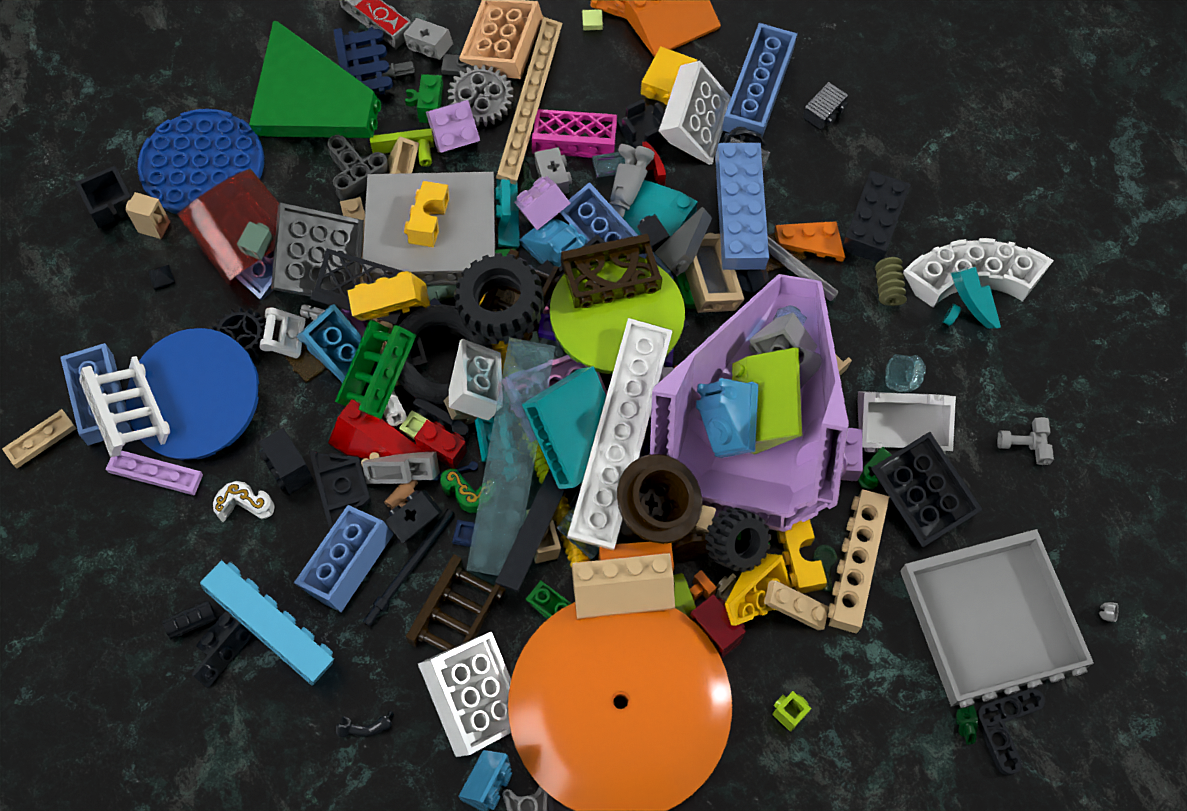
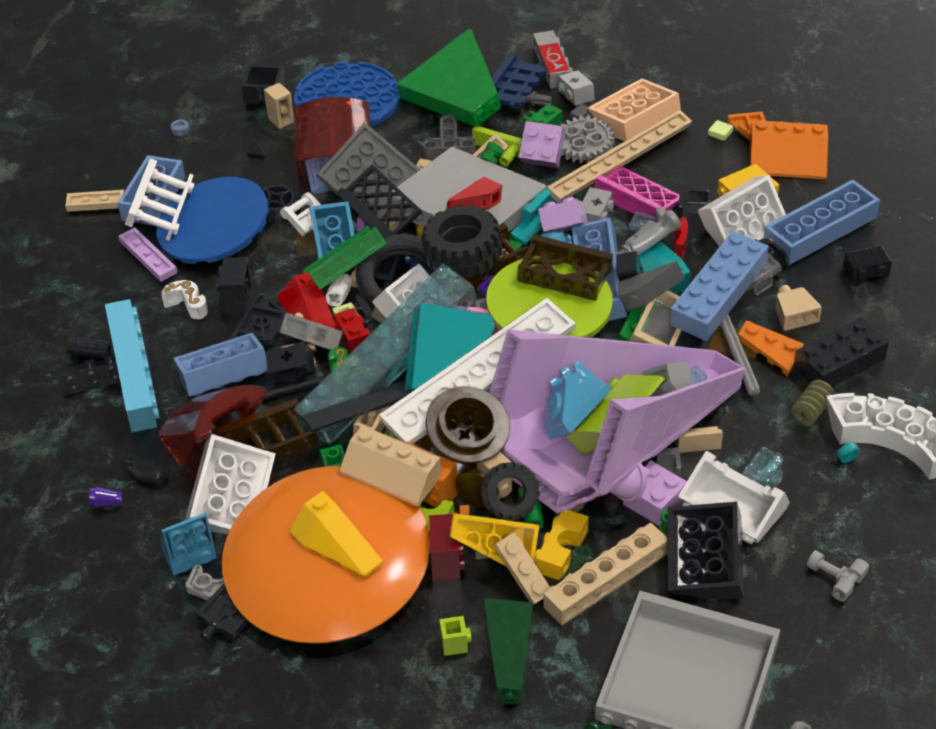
camera: 40 degrees right, 20 degrees down
(53, 295) = (180, 127): none -> sand blue tile
(255, 240) = (328, 138): sand green brick -> none
(353, 779) = (104, 497): none -> dark purple cone
(388, 295) = (389, 211): yellow wedge -> none
(396, 635) = (195, 418): none -> clear red windscreen
(412, 162) = (492, 152): none -> green wheel
(430, 199) = (460, 179): yellow arch -> none
(454, 228) = (482, 193): none -> red slope
(629, 694) = (329, 532): none -> yellow wedge
(802, 186) = (796, 308): none -> tan torso
(846, 693) = (509, 644): none -> dark green slope
(976, 297) = (876, 442): teal slope -> none

